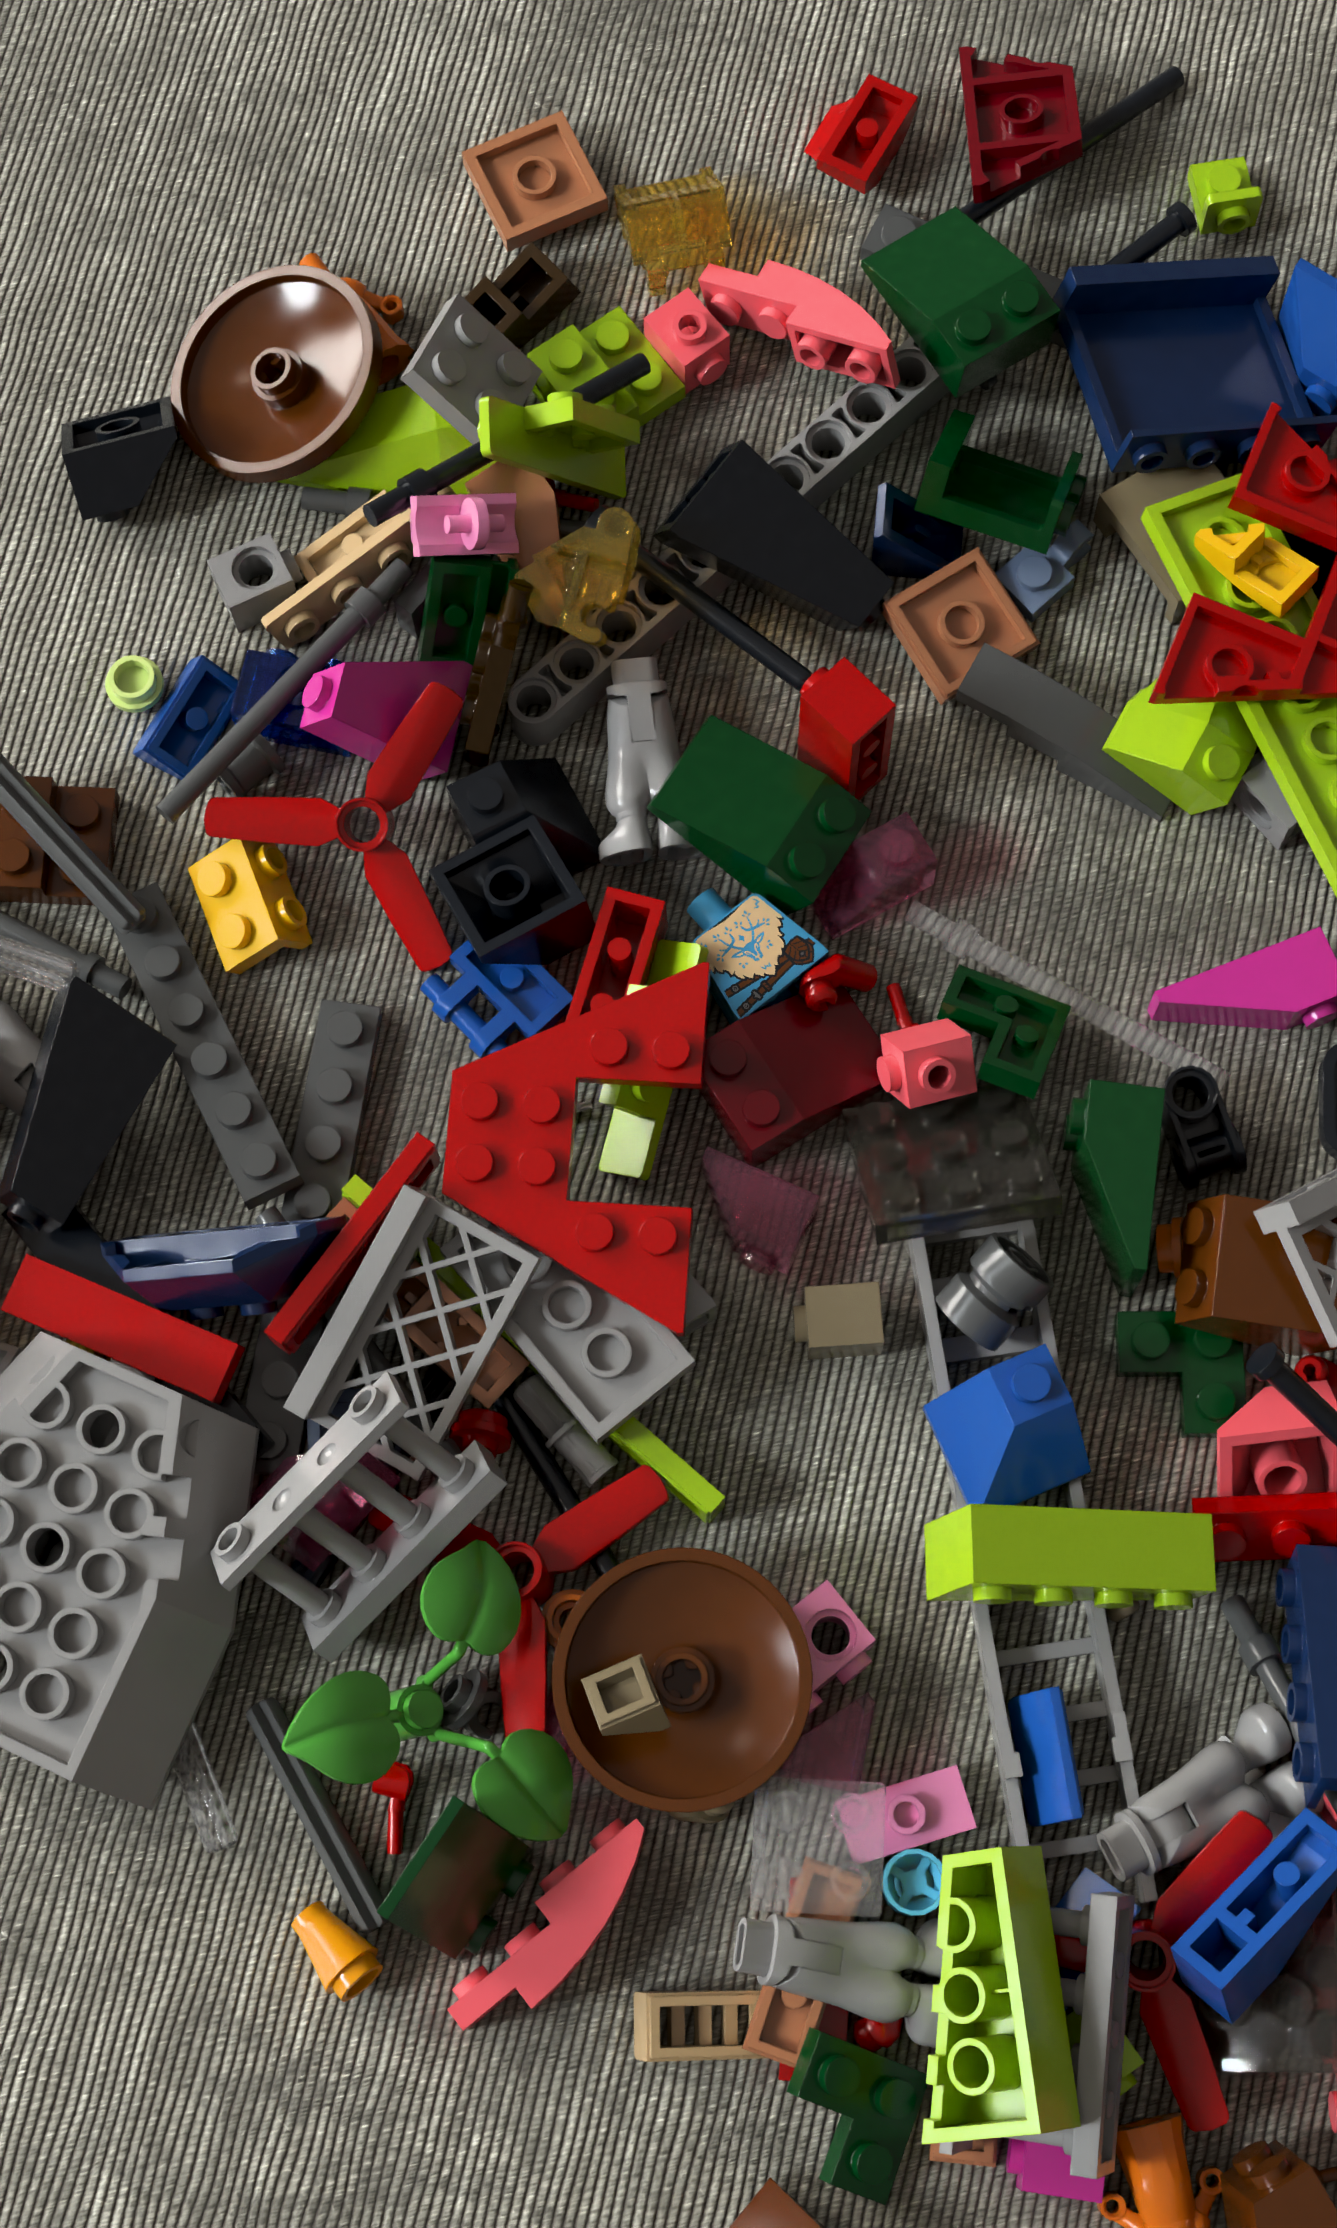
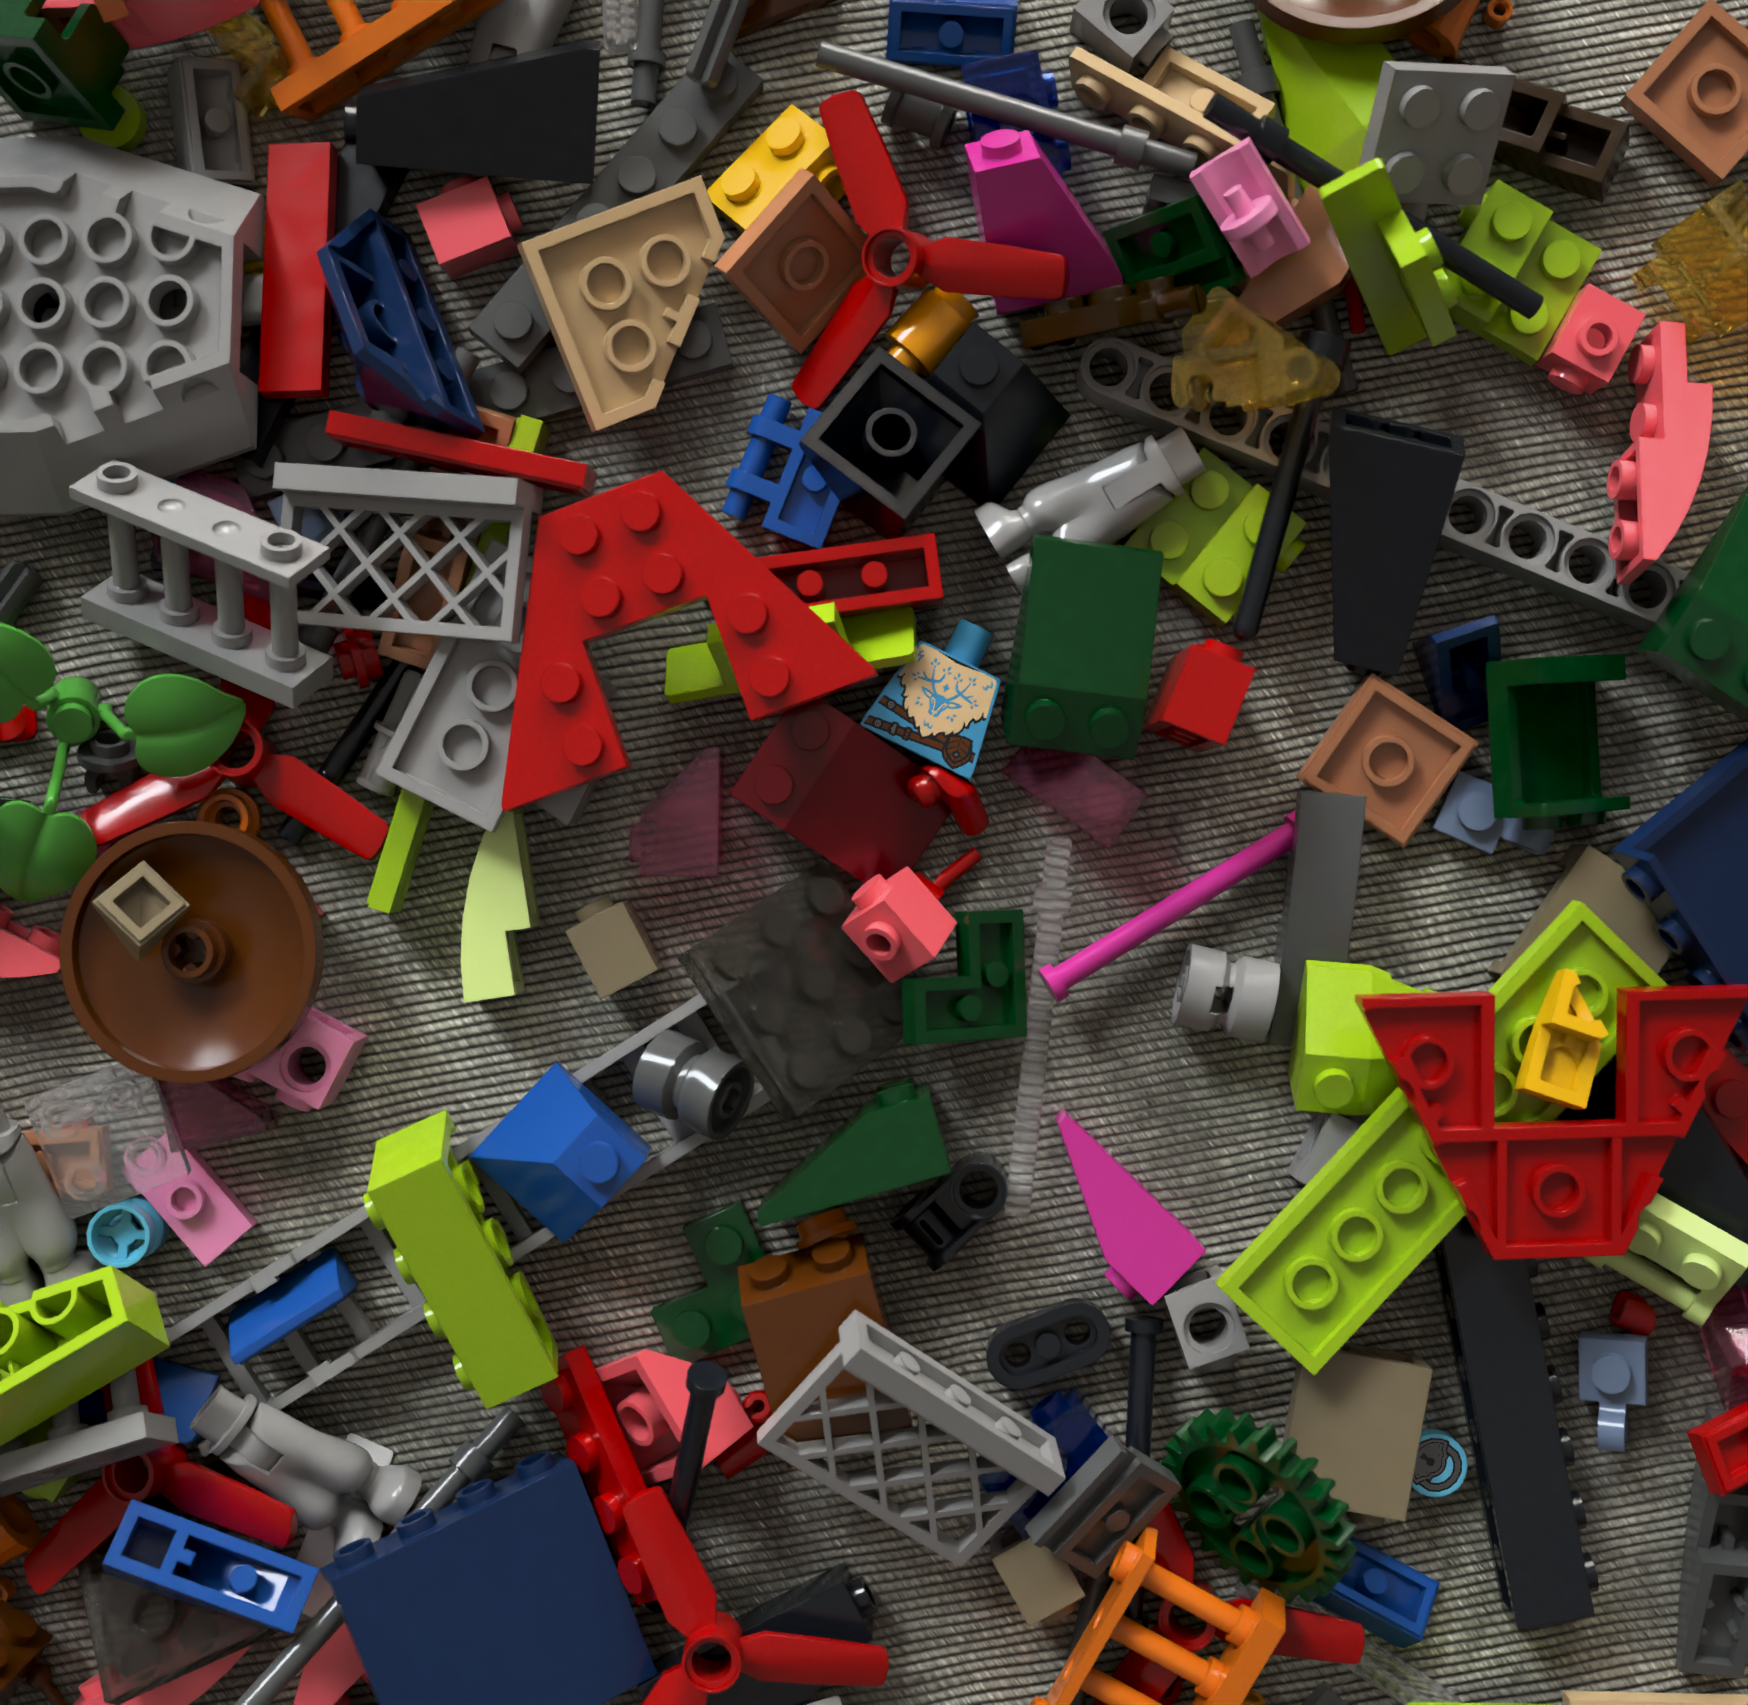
camera: 60 degrees right, 15 degrees up
(155, 1172) = (470, 225): none -> coral brick
(284, 1058) = (625, 294): none -> tan plate
(325, 908) = (797, 260): none -> nougat plate
(430, 829) = (930, 329): none -> light orange brick
(719, 679) = (1212, 537): none -> lime plate
(759, 1408) = (496, 905): none -> yellowish green slope
(1032, 954) = (1168, 911): none -> dark pink bar
(1107, 819) = (1247, 999): none -> light grey wheel

